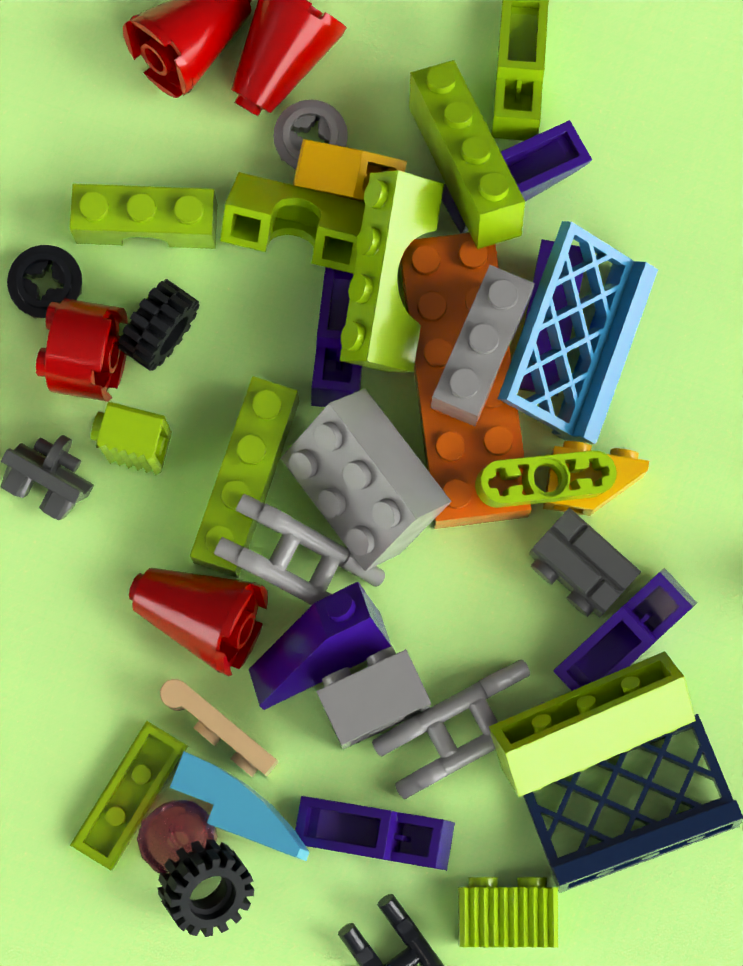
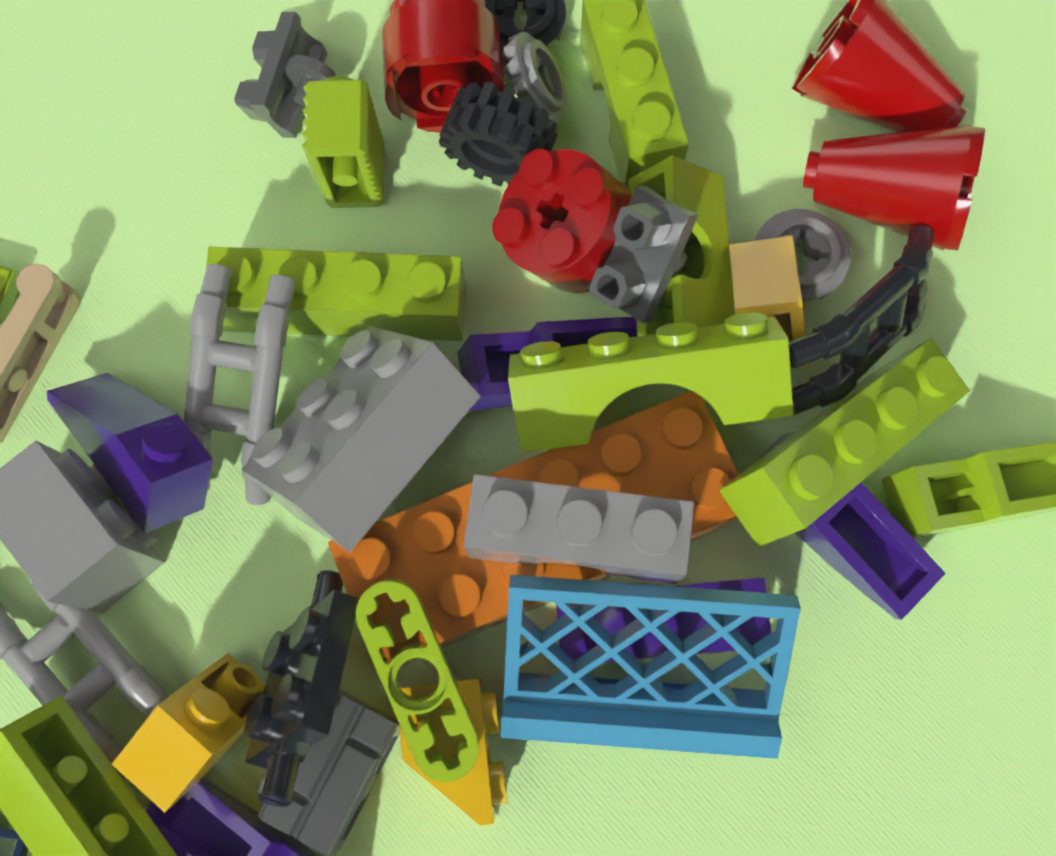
camera: 75 degrees right, 5 degrees down
(115, 284) = (535, 74): none -> light grey gear
(202, 613) = (145, 292): red cone -> none
(239, 318) = (560, 217): none -> red brick
(297, 247) = (644, 254): none -> dark grey hips
(391, 111) = (893, 301): none -> black piece
(526, 558) = (300, 688): none -> black plate
(535, 642) = (190, 731): none -> yellow slope

